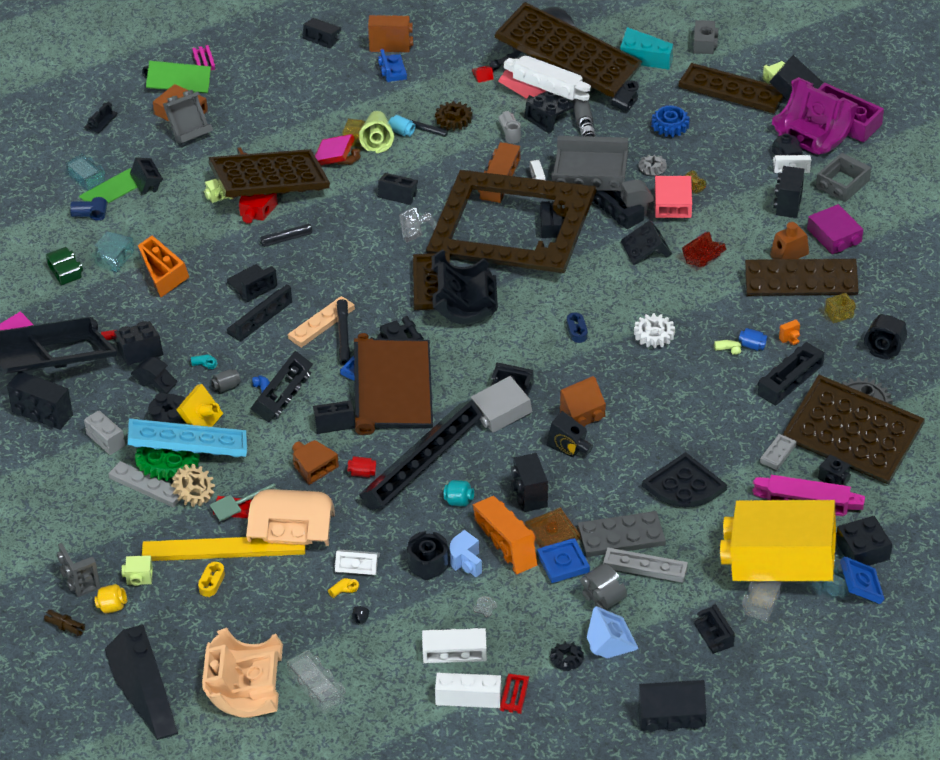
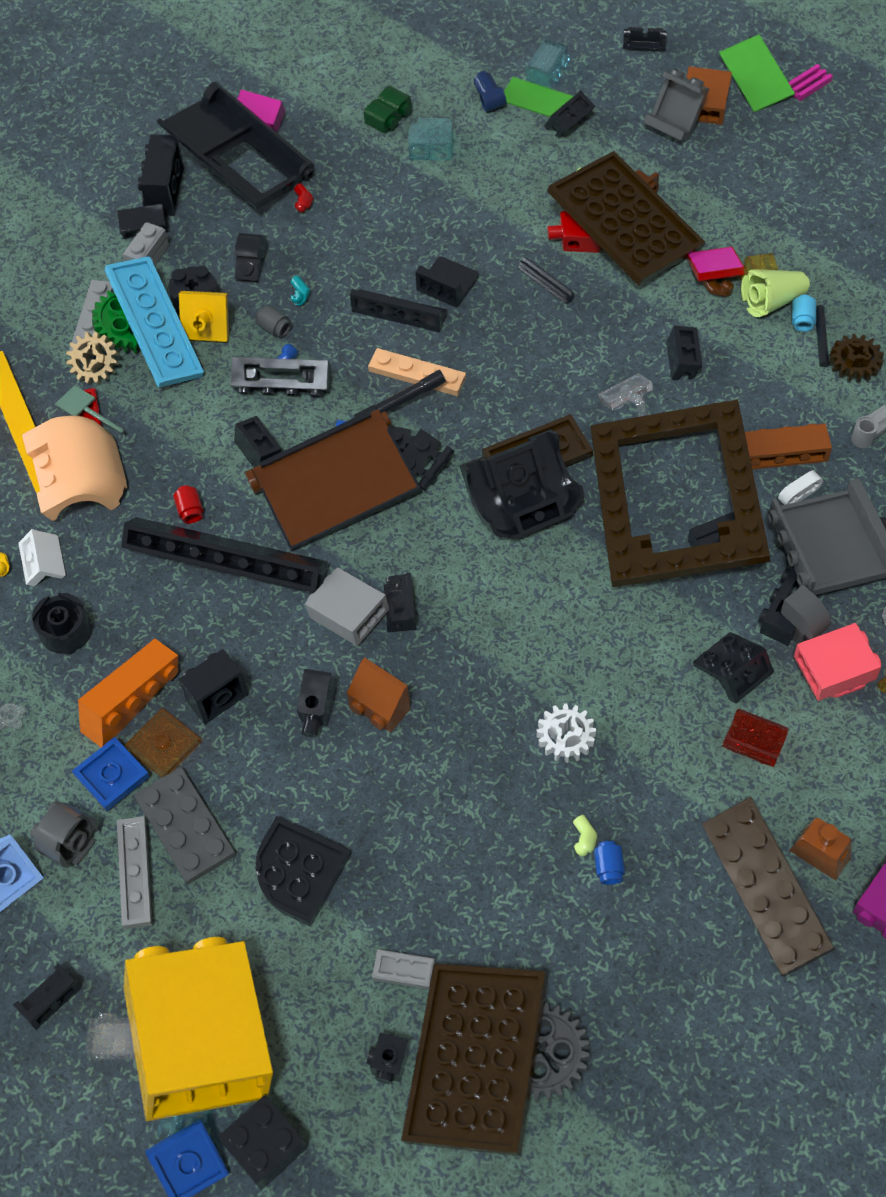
camera: 70 degrees right, 15 degrees up
(71, 429) = (134, 218): none -> black hinge
(138, 342) = (287, 219): black brick -> none
(163, 265) = (424, 189): orange wedge -> none
(314, 460) = (178, 452): dark orange torso -> none
(458, 493) = (179, 617): teal head -> none
(463, 553) = (81, 657): light blue brick -> none
(573, 328) = (535, 644): dark blue beam -> none
(790, 332) = (645, 907): orange tile -> none
(794, 376) = (603, 941): black brick -> none
(799, 489) = (331, 1040): dark pink hinge -> none
(840, 308) = (730, 948): clear yellow brick -> none
(885, 336) = (690, 1043): black brick -> none

